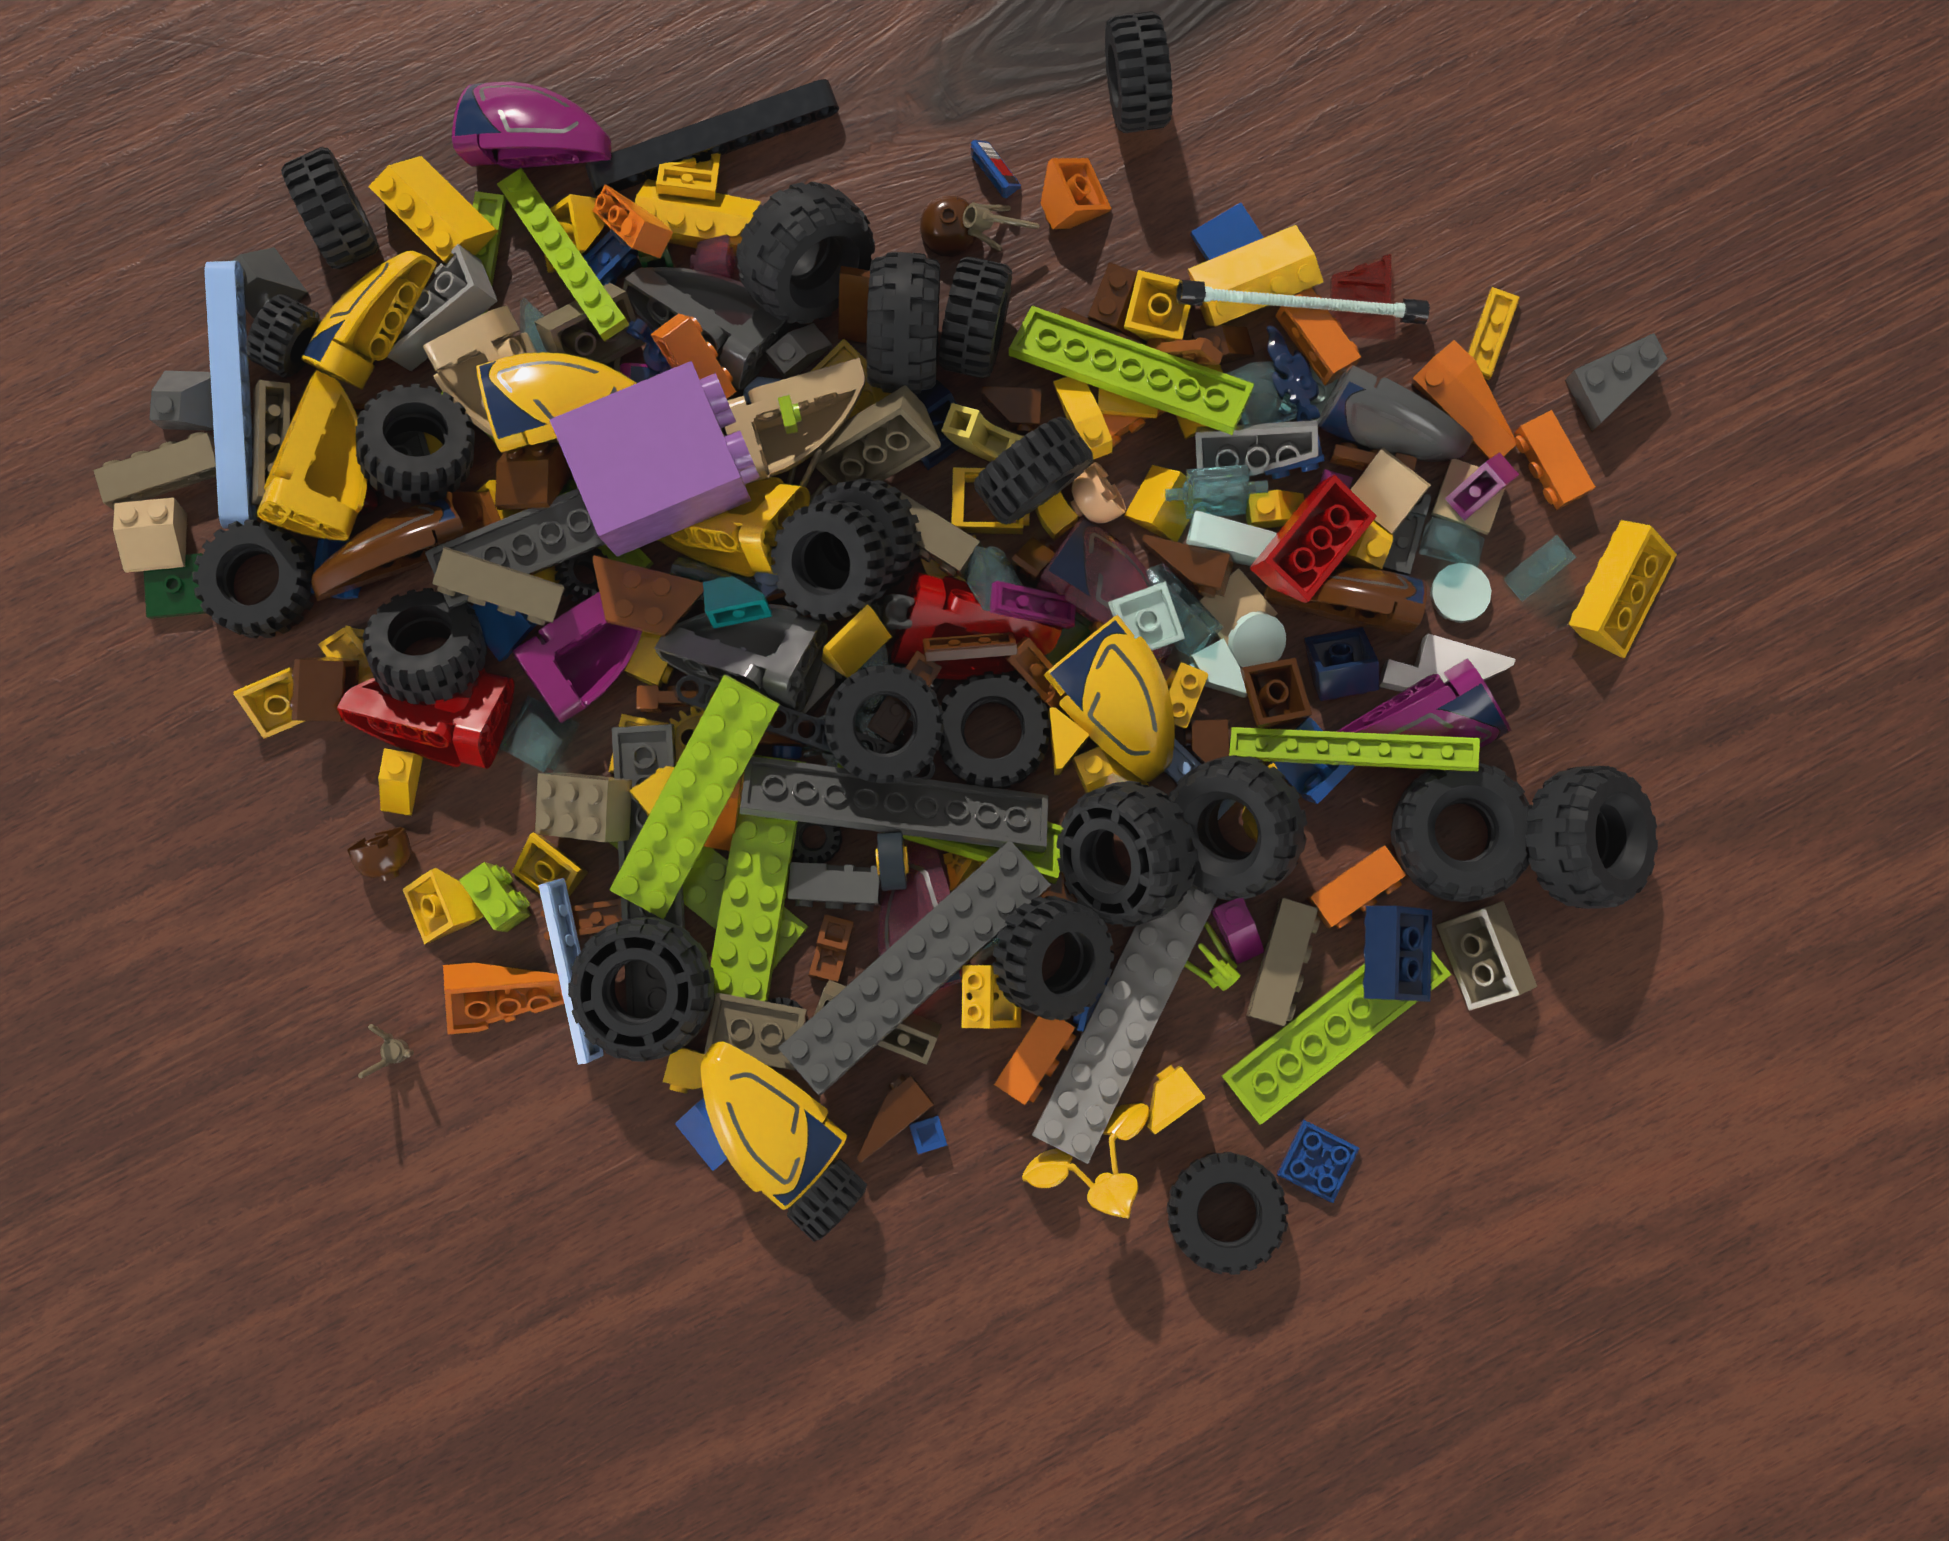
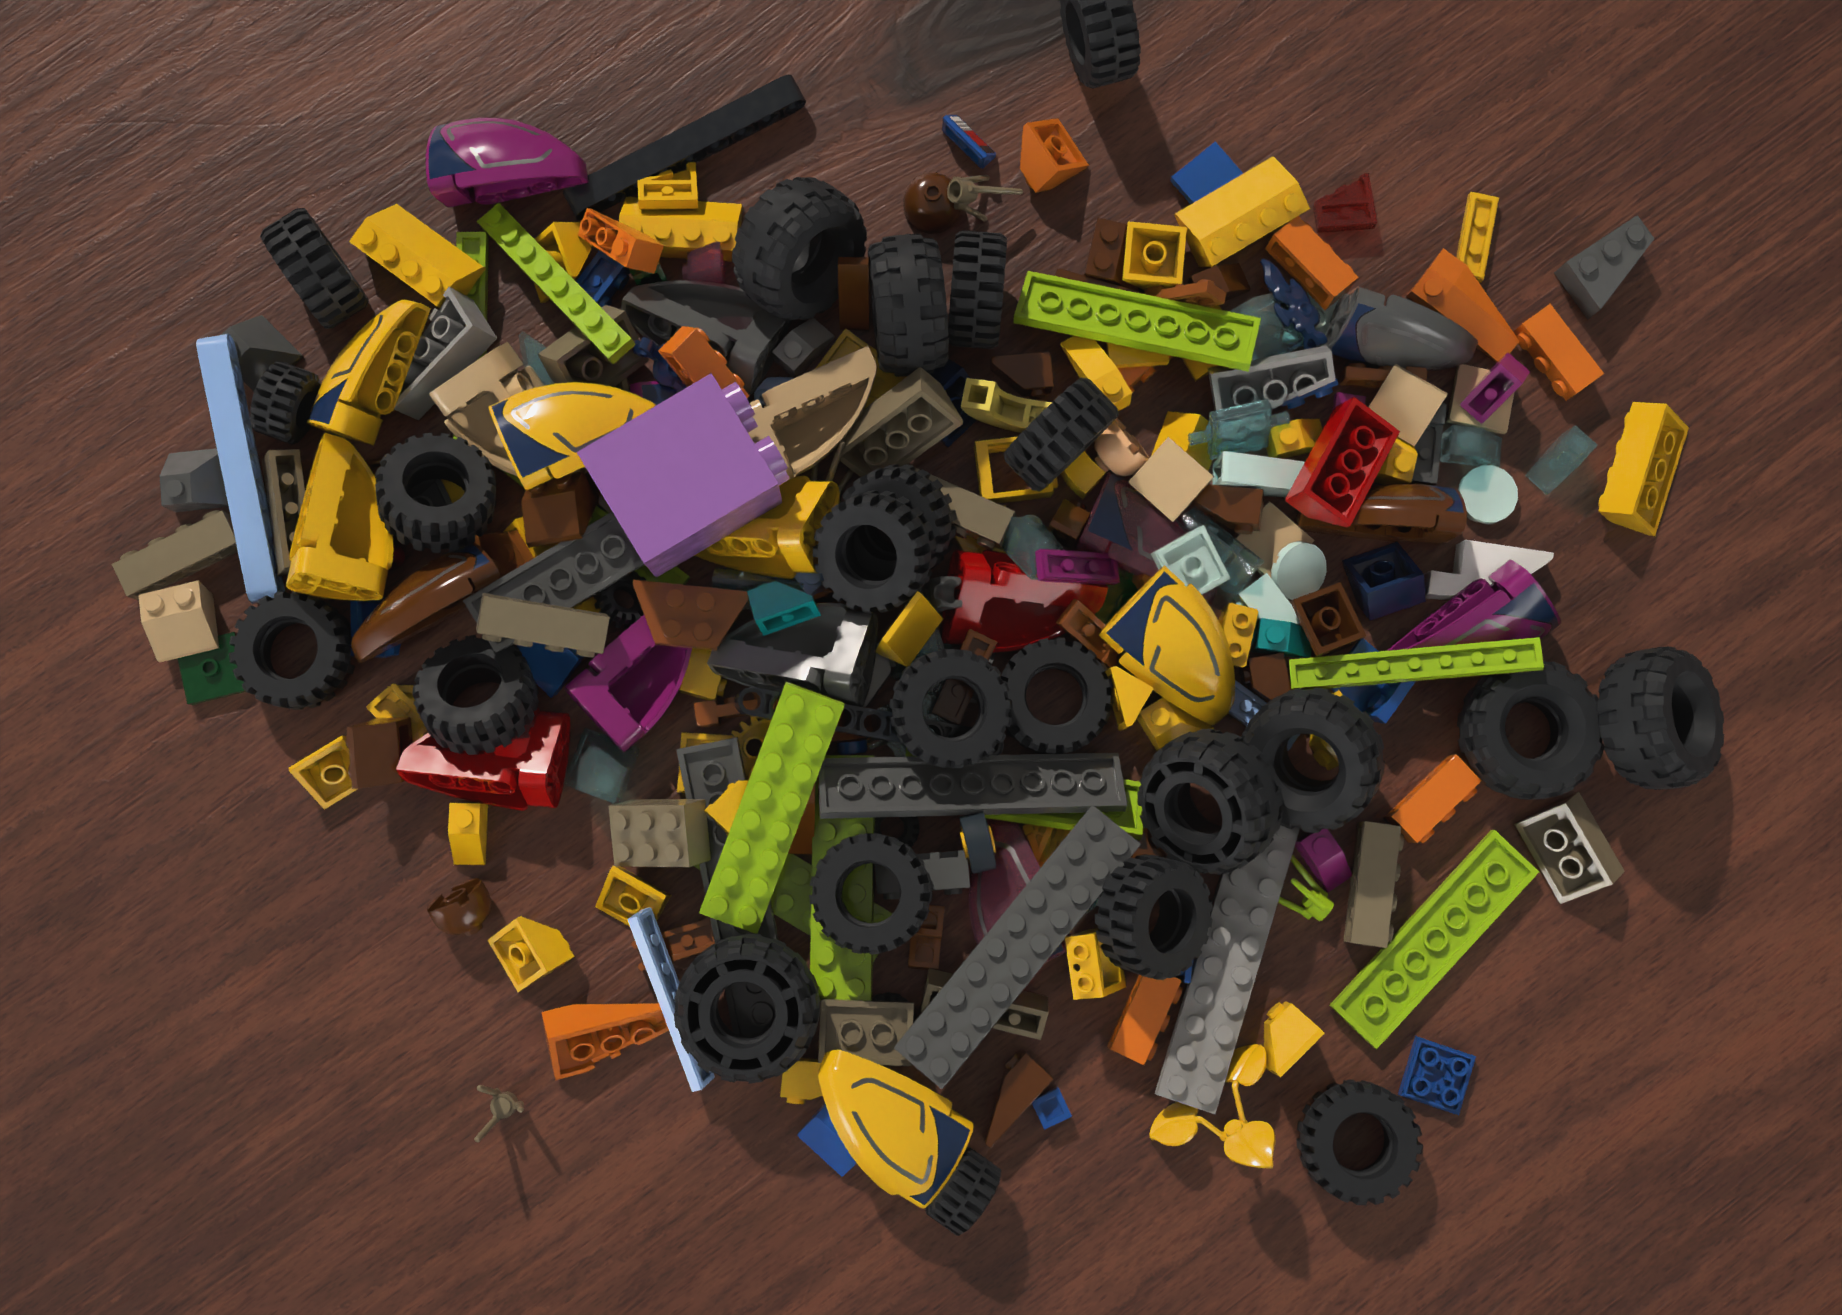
camera: 20 degrees left, 0 degrees up
(496, 897) = (584, 935): lime brick -> none
(738, 894) = (829, 903): none -> black tyre
(790, 414) = (809, 411): lime plate -> none
(969, 646) = (1021, 617): reddish brown tile -> none
(1140, 532) = (1171, 479): none -> tan tile
(1196, 293) = (1190, 235): light aqua hose -> none
(1227, 703) = (1279, 637): none -> teal slope
(1398, 953) = (1485, 860): dark blue slope -> none

